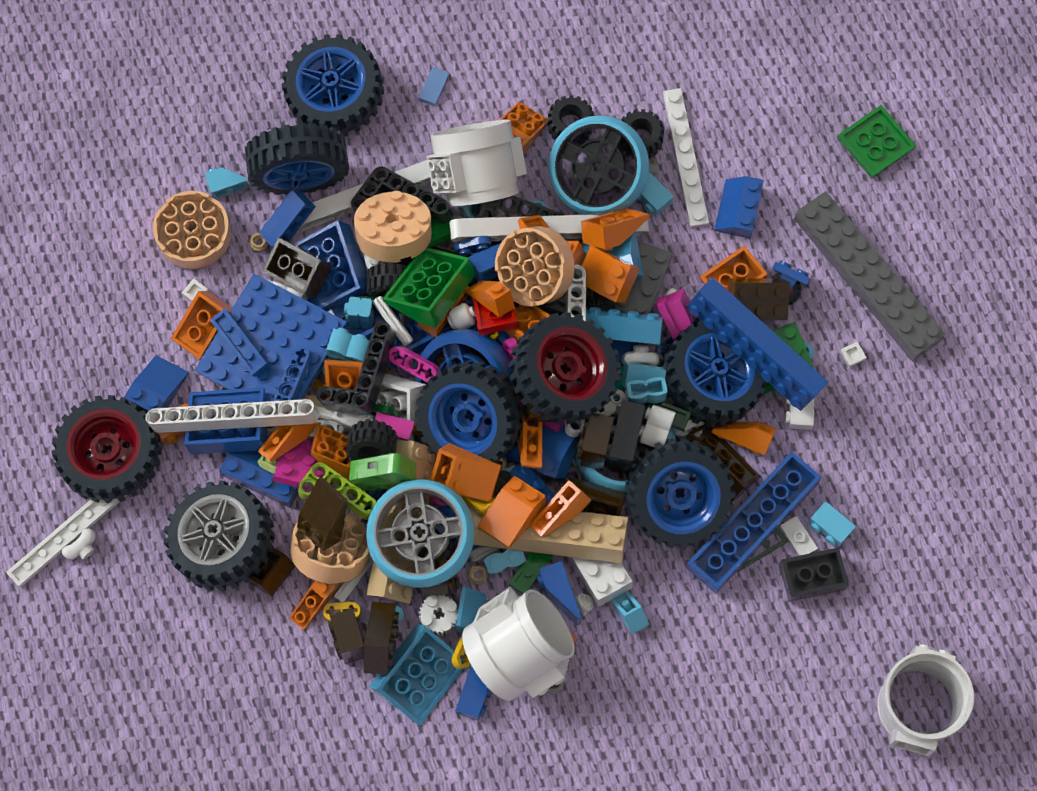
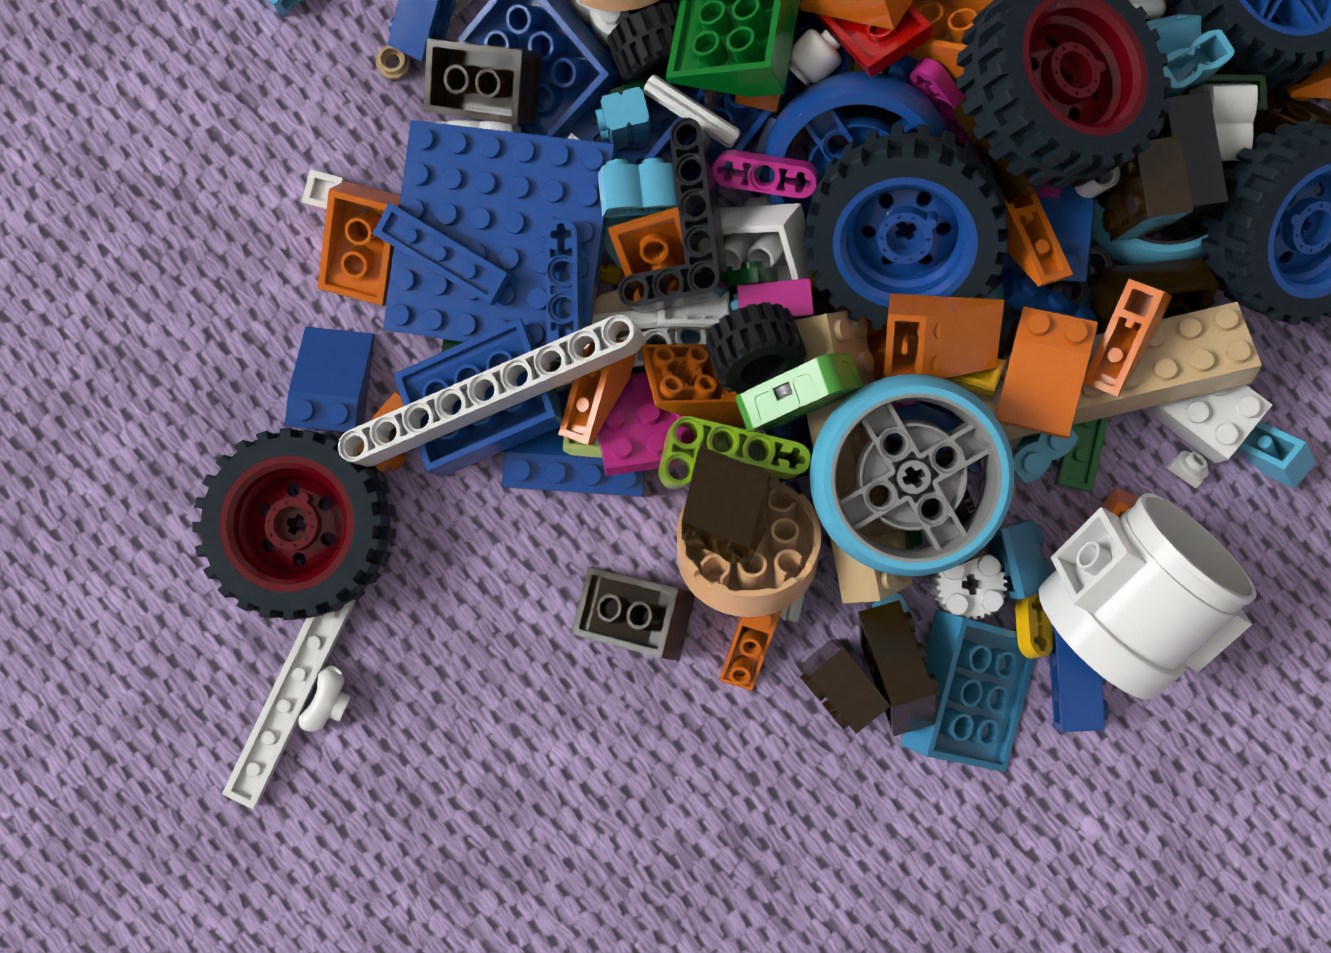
camera: 20 degrees left, 15 degrees up
(205, 242) = (247, 55): light nougat brick -> none
(219, 536) = (604, 627): wheel -> none
(341, 606) = (798, 629): yellow beam -> none
(558, 589) = (1150, 461): blue slope -> none

